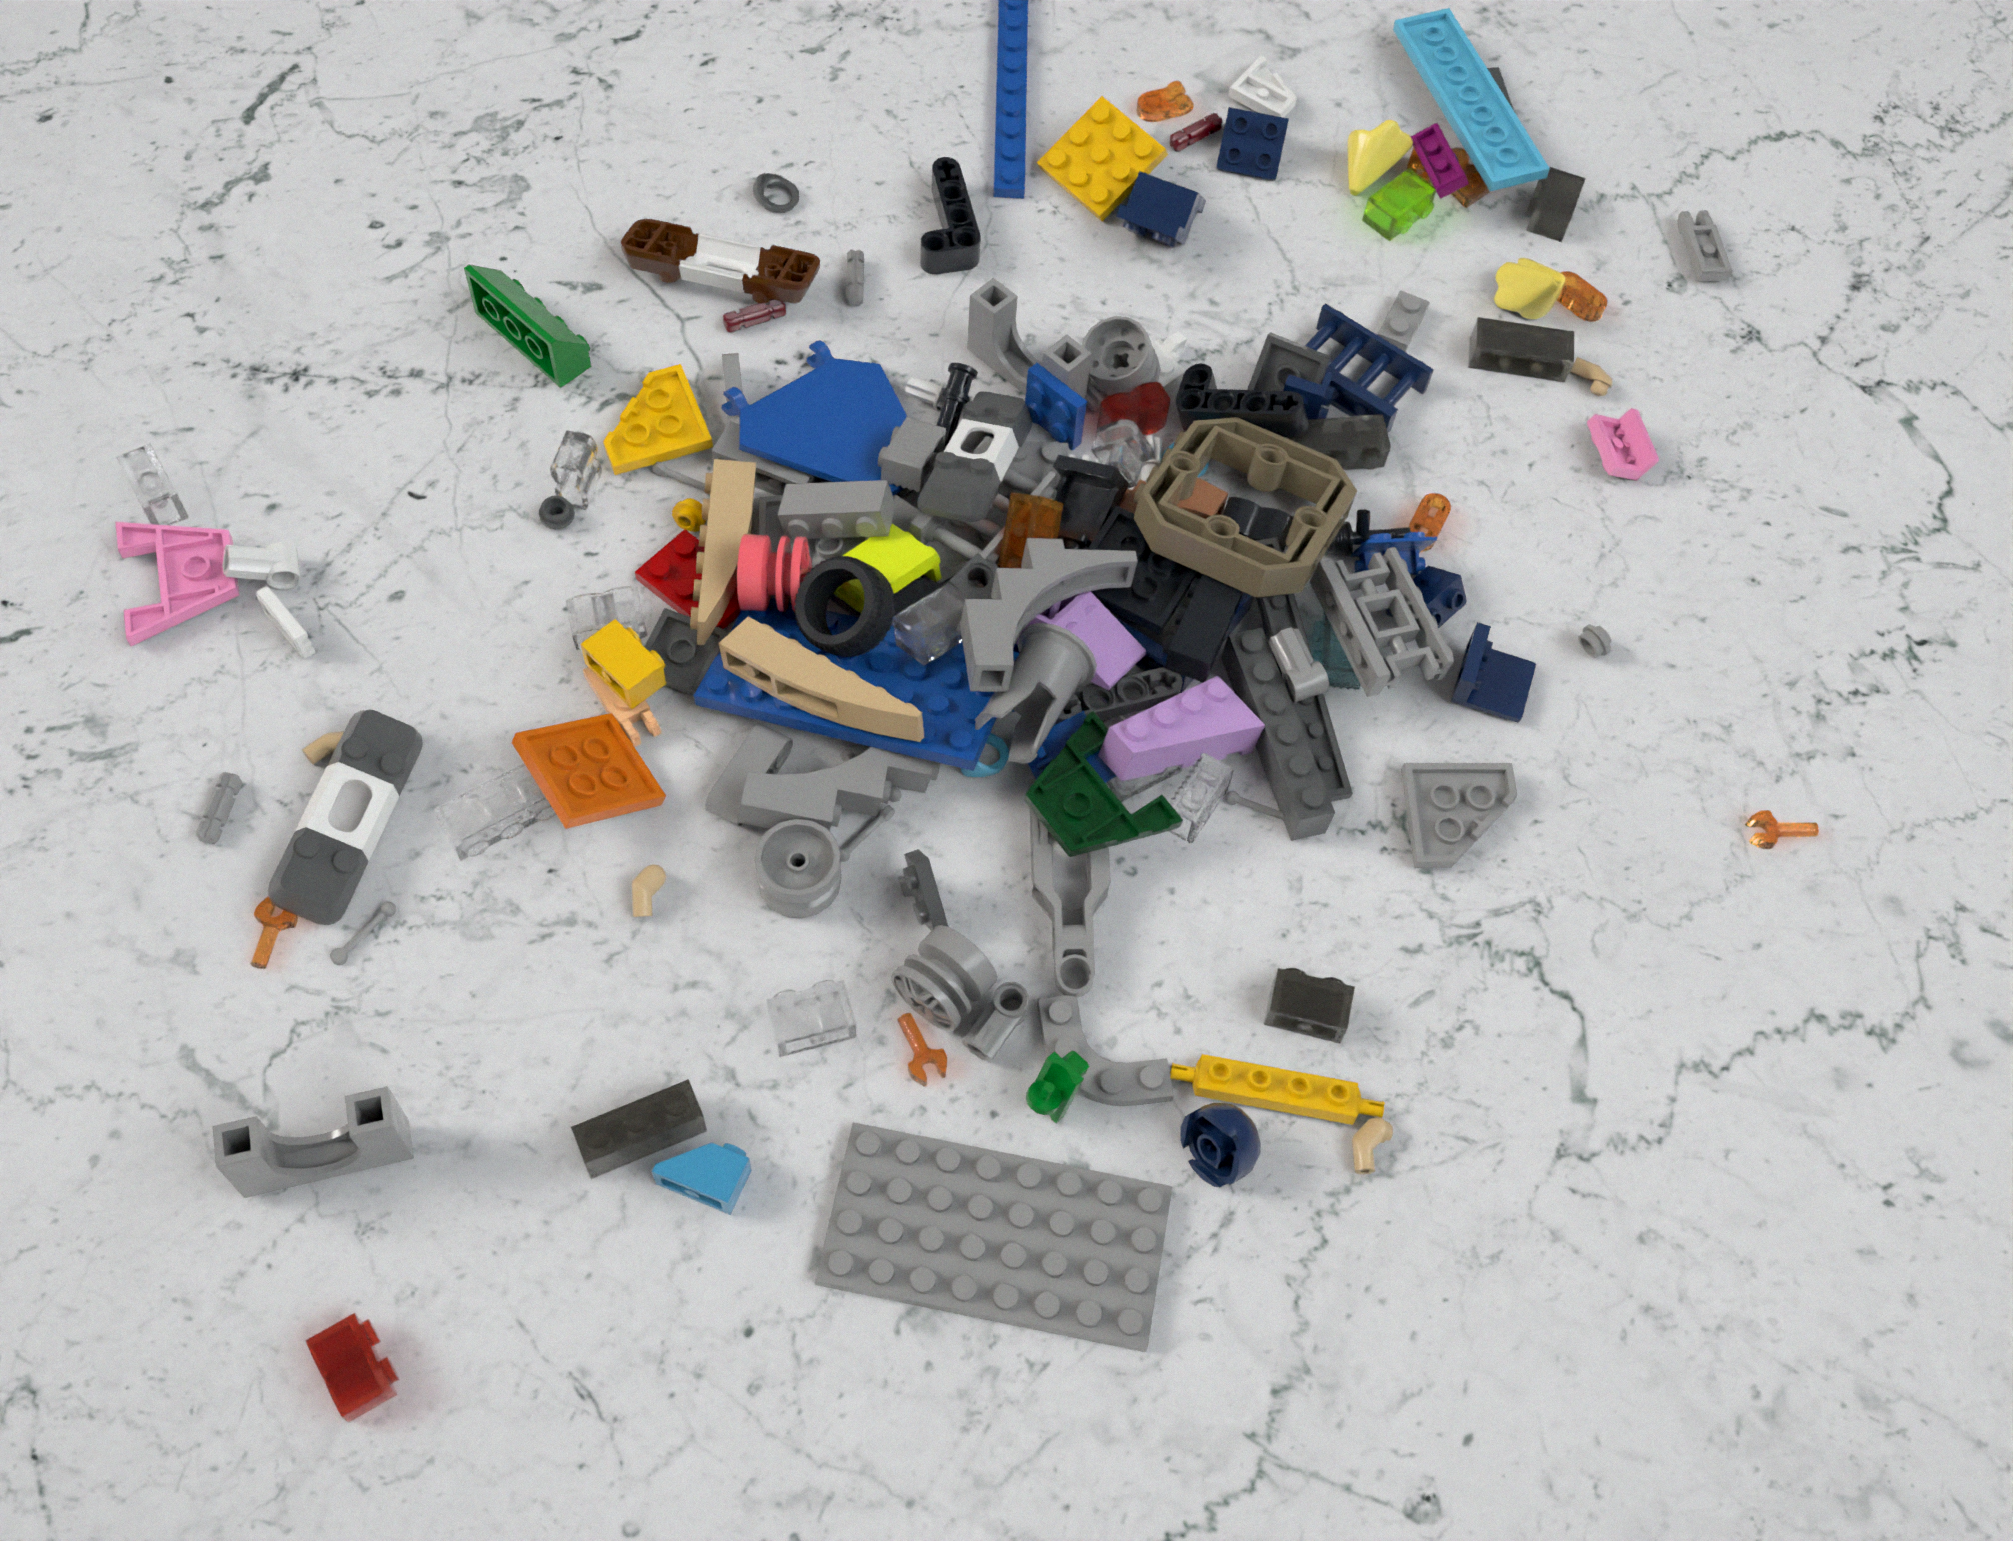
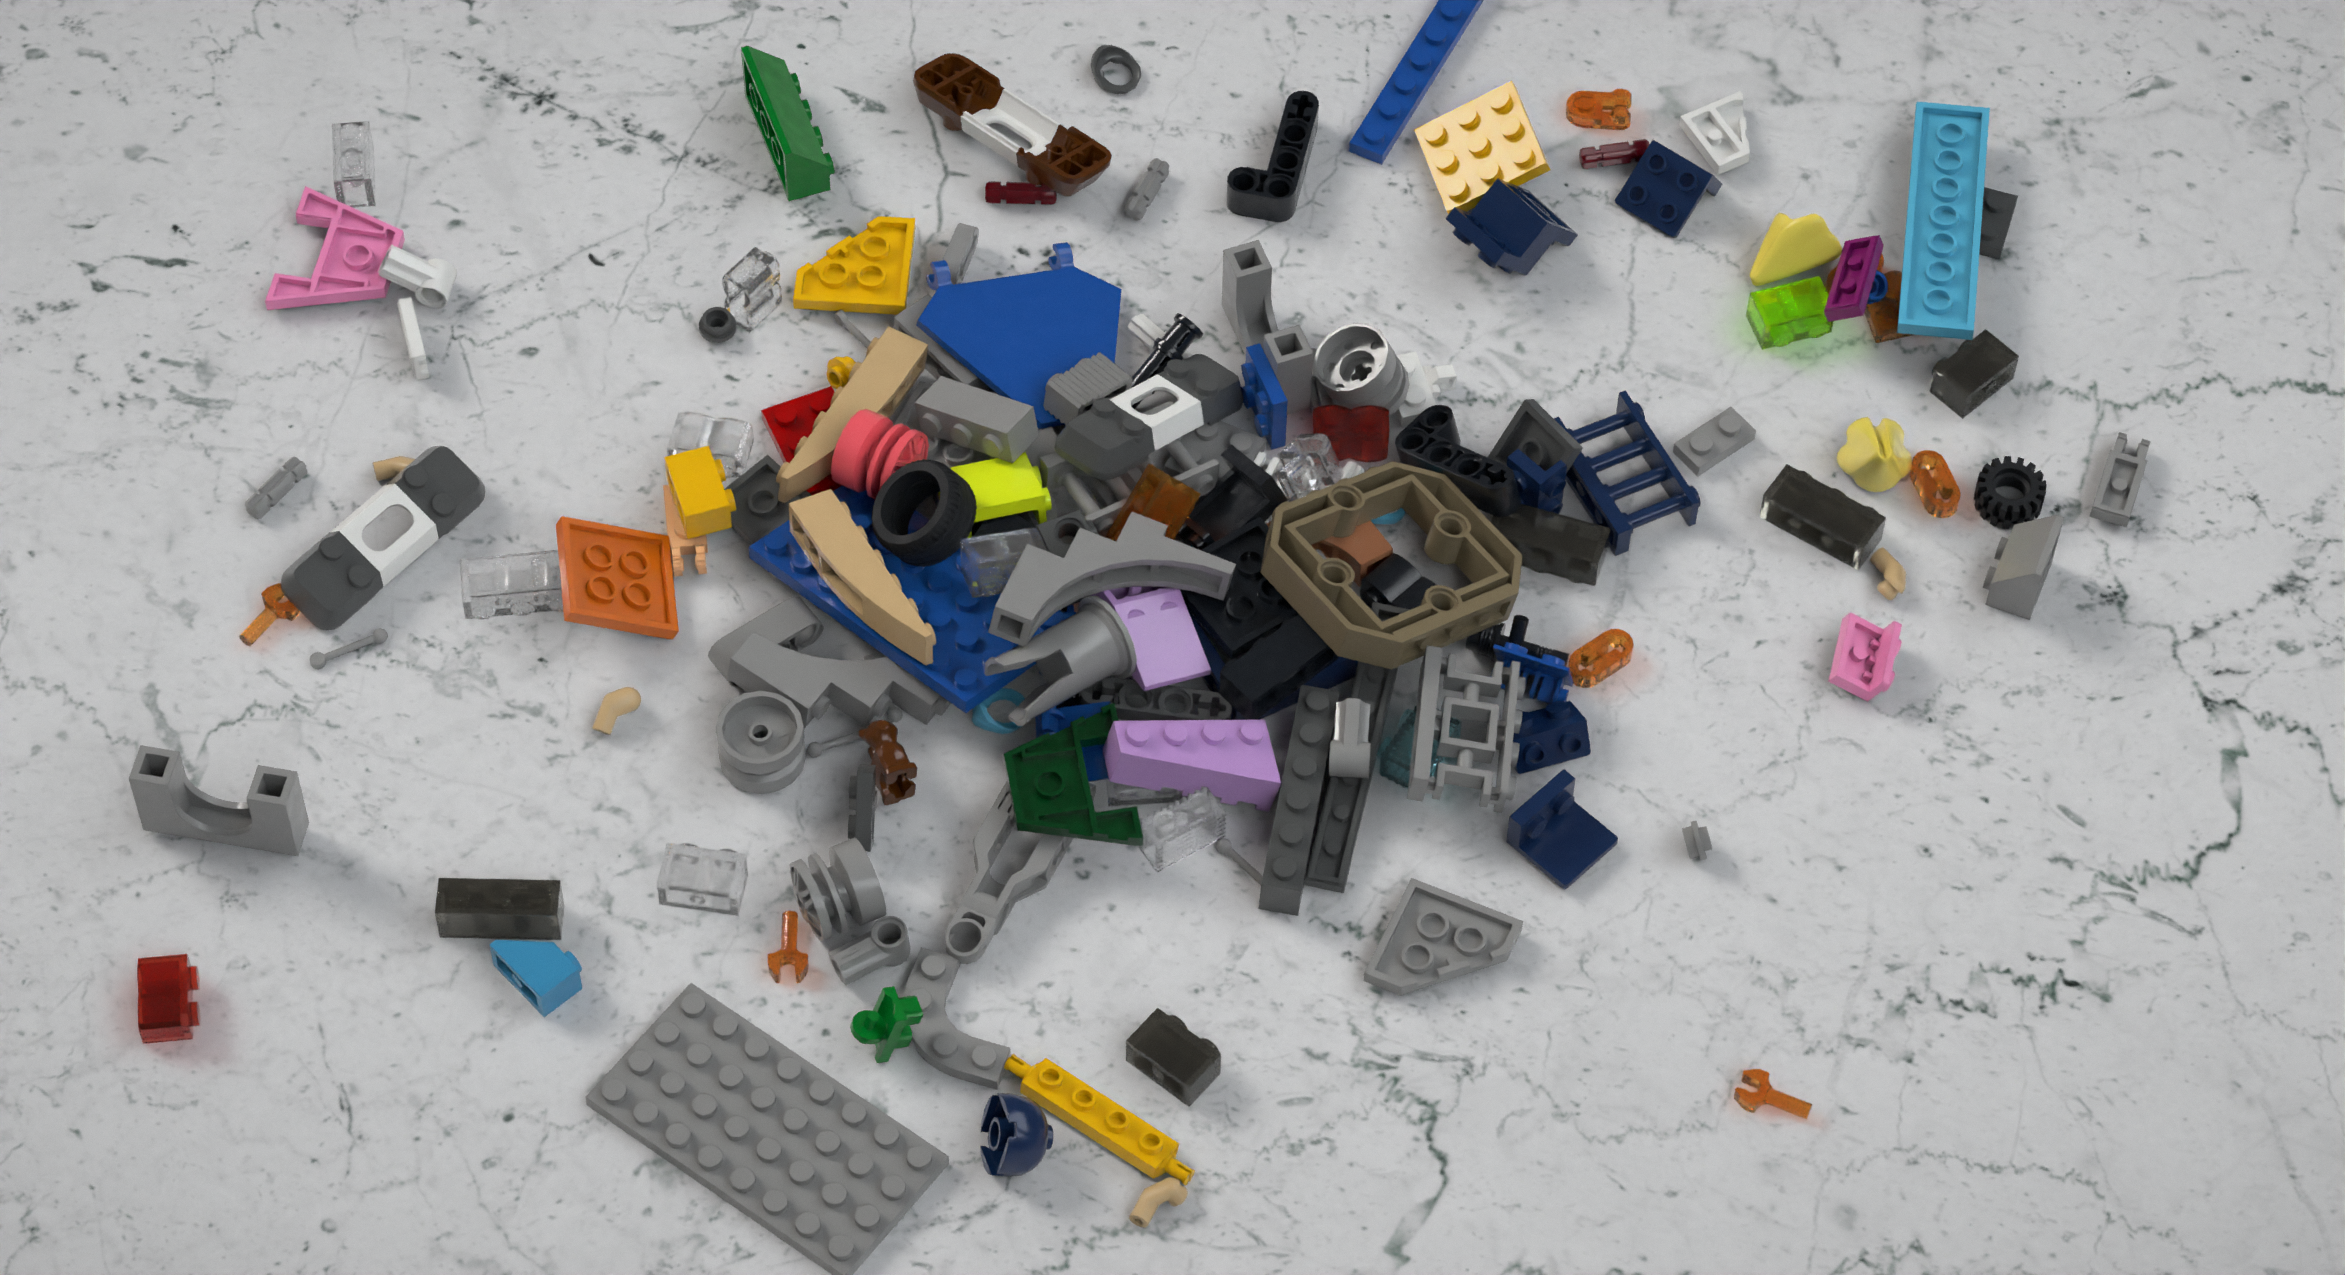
camera: 30 degrees right, 5 degrees down
(913, 833) = (891, 762): none -> reddish brown animal
(1630, 294) = (2015, 476): none -> black tyre
(1692, 330) = (2023, 566): none -> light grey slope

